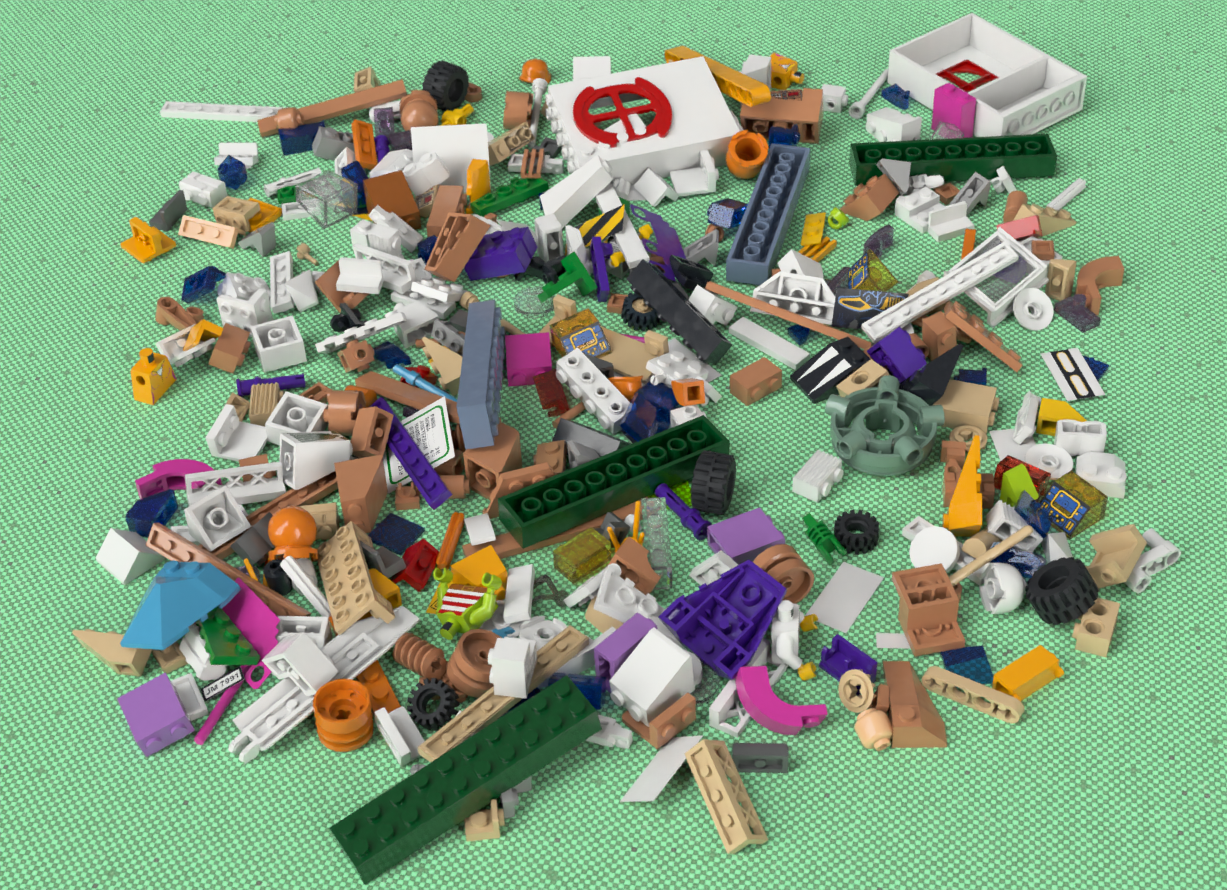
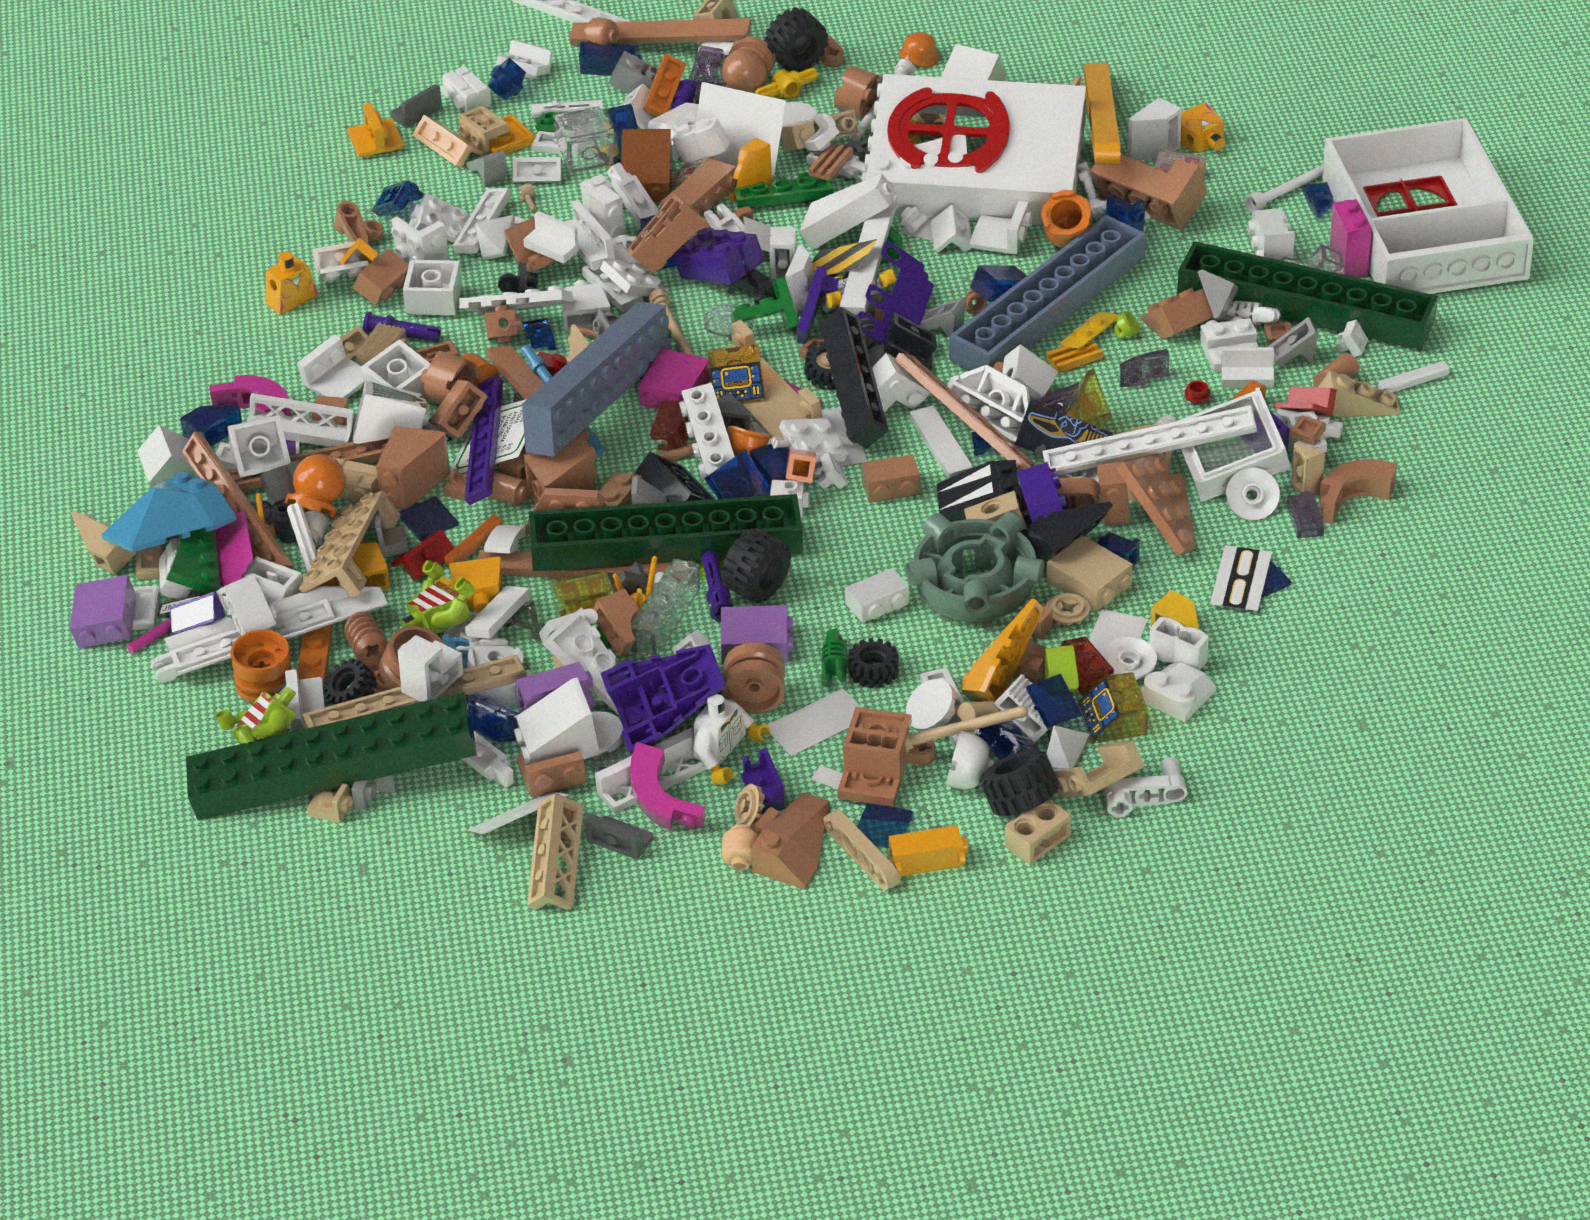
camera: 25 degrees right, 0 degrees up
(248, 686) = (195, 613): none -> slope
(301, 232) = (537, 169): none -> white panel
(379, 765) = (264, 719): none -> lime torso
(517, 145) = (827, 131): none -> white bracket
(834, 98) = (1235, 179): white brick -> none
(927, 249) = (1197, 392): none -> red plate
(1026, 418) = (1135, 615): white hinge -> none

